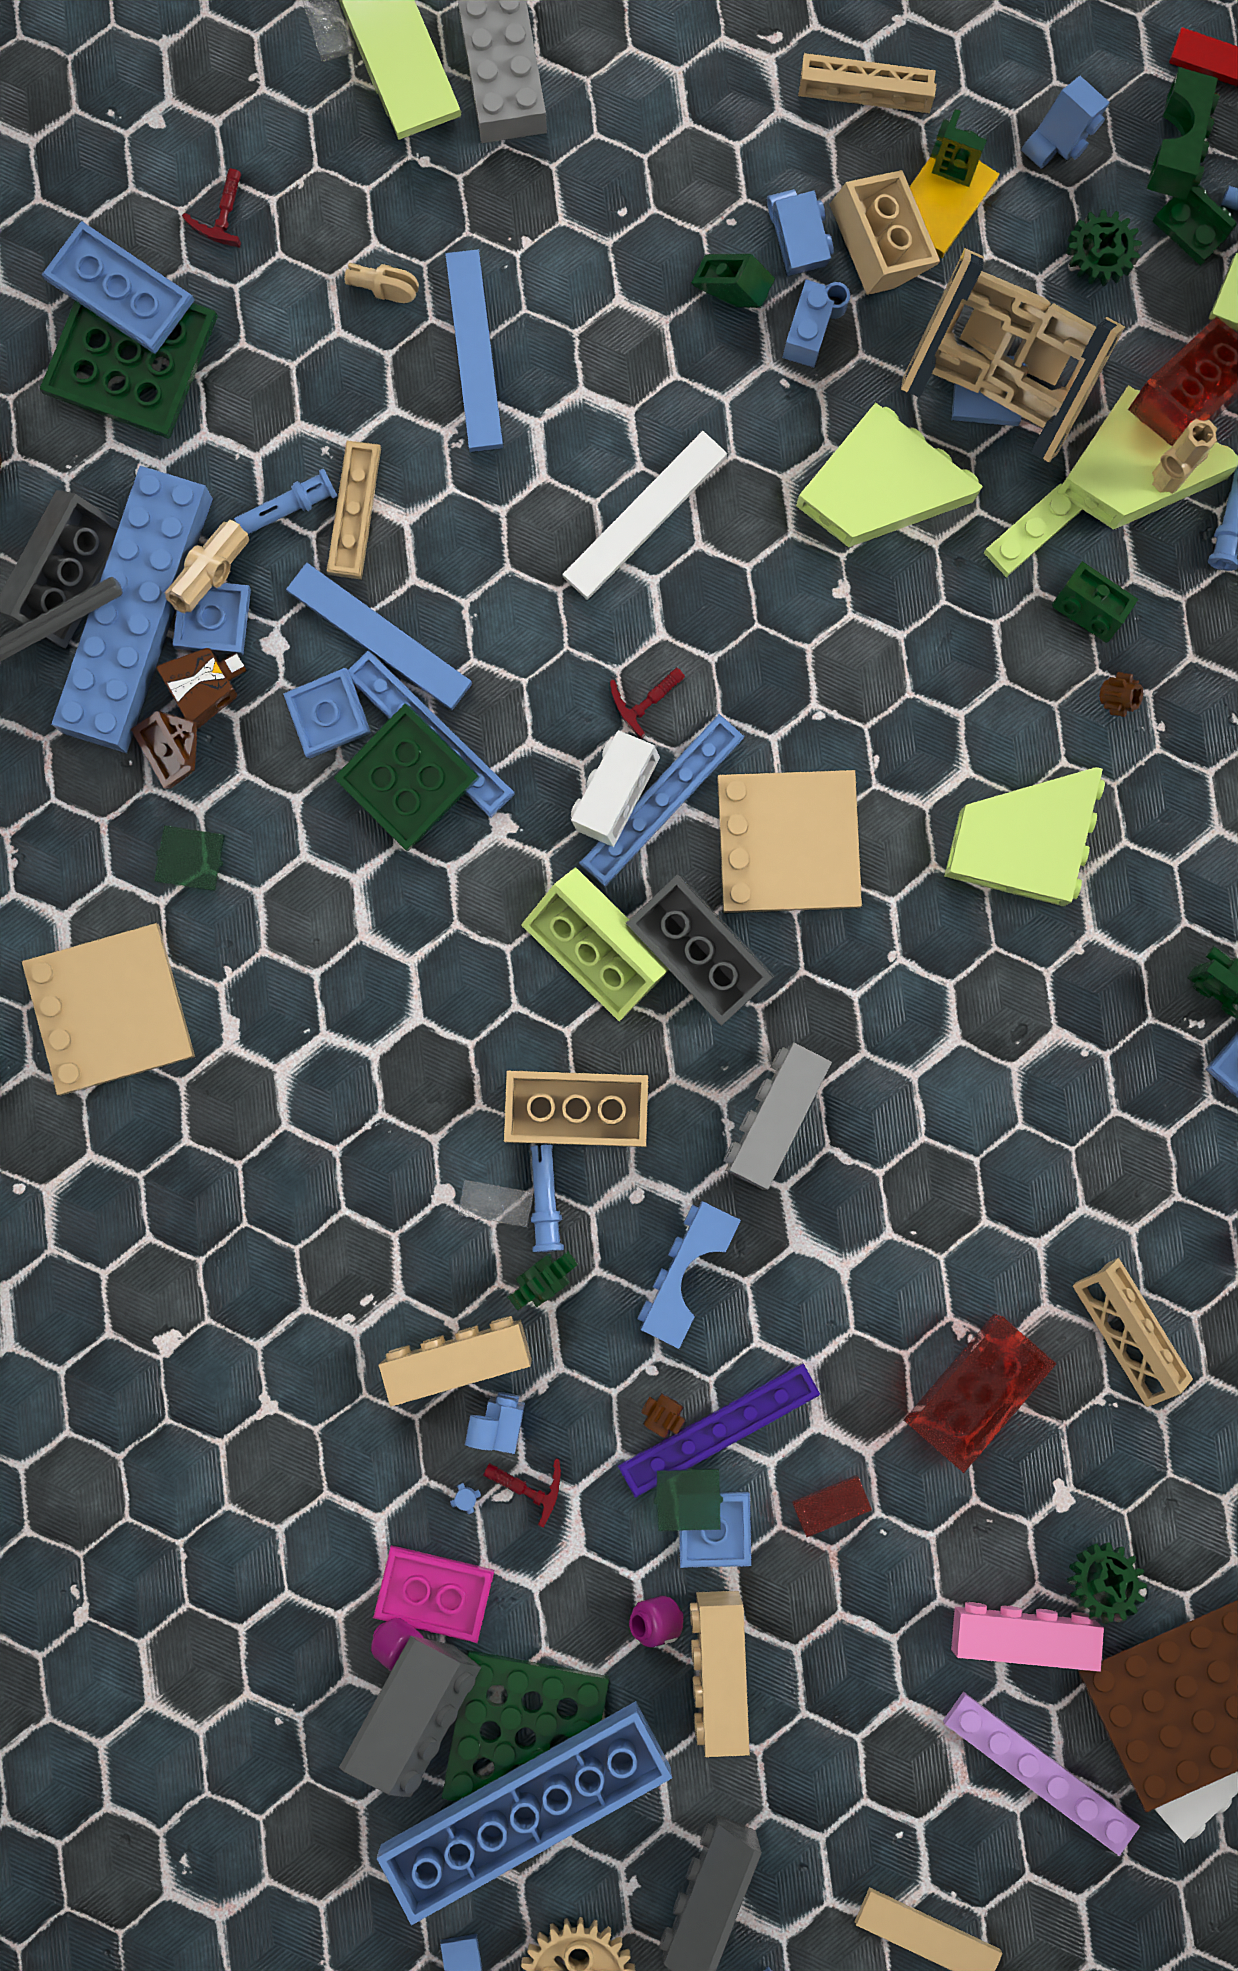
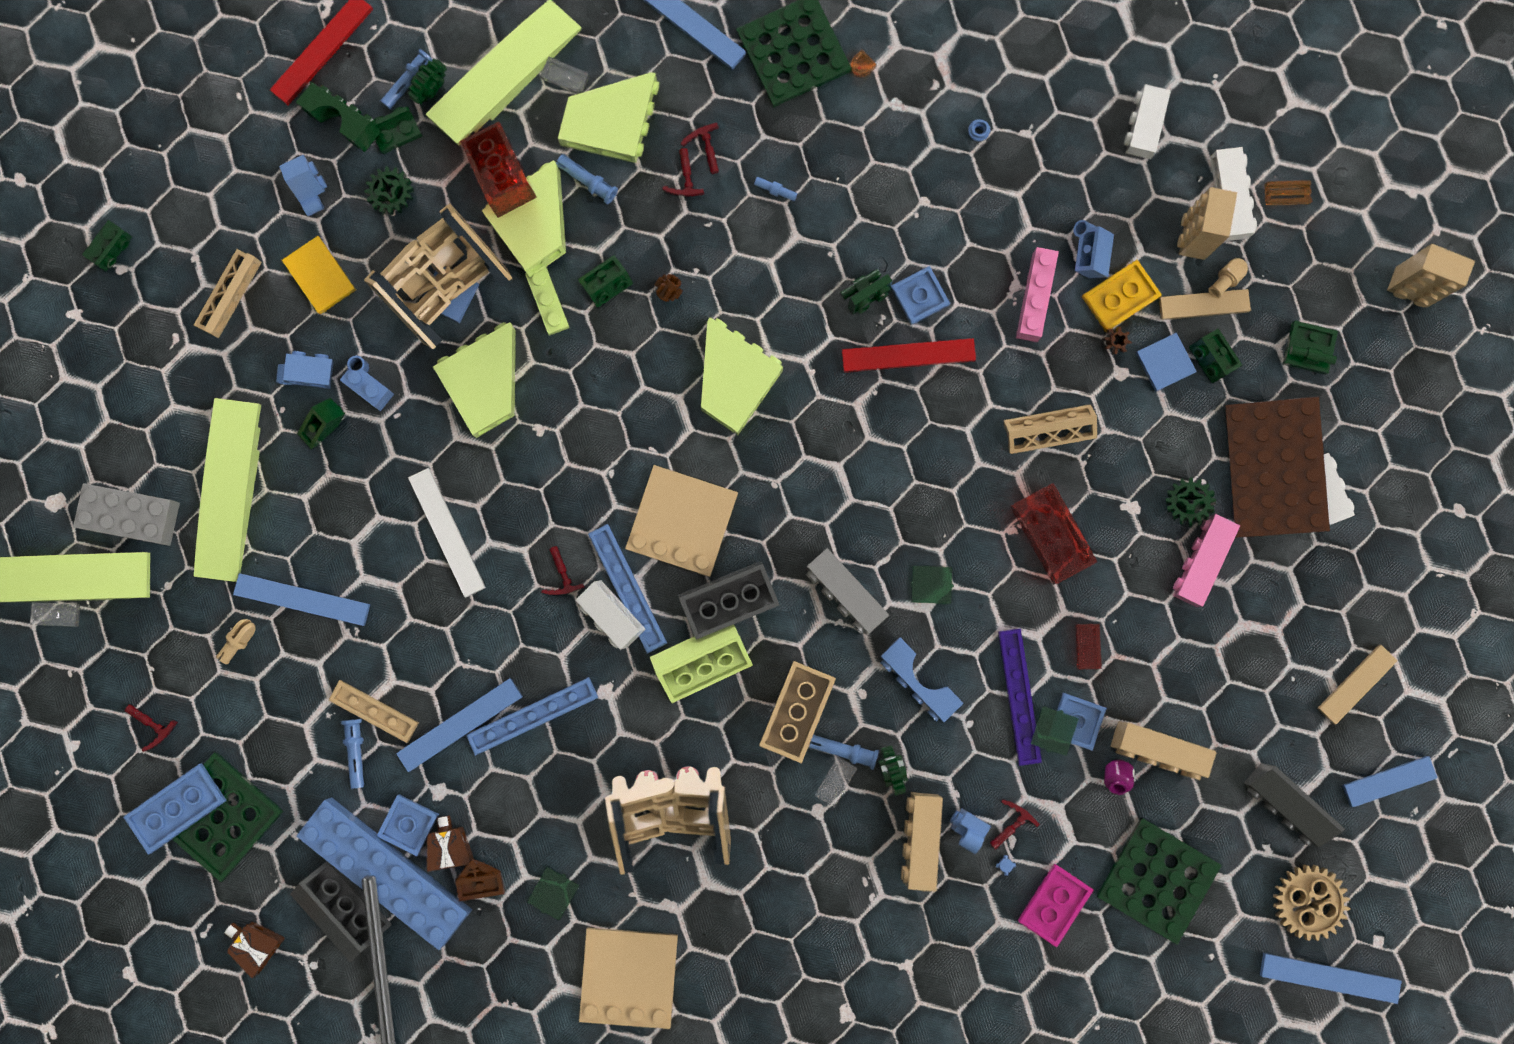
camera: 60 degrees left, 0 degrees up
(207, 566) = (376, 816): tan piece -> none
(327, 713) = (495, 774): medium blue tile -> none
(361, 977) = (668, 813): none -> tan container
(390, 1641) = (1078, 938): magenta head -> none
(406, 777) = (554, 740): dark green plate -> none
(410, 1716) = (1123, 945): dark grey slope -> none
(523, 1813) = (1203, 898): medium blue brick -> none
(591, 187) = (227, 489): none -> yellowish green slope
(663, 1415) = (999, 727): reddish brown gear -> none
(834, 1240) = (932, 584): none -> clear green piece
(883, 231) = (327, 320): tan slope -> none
(956, 151) = (297, 257): dark green bracket -> none
(1041, 1773) = (1286, 582): lavender plate -> none
(1160, 1082) = (908, 355): none -> red tile
(1184, 456) = (541, 197): tan piece -> none

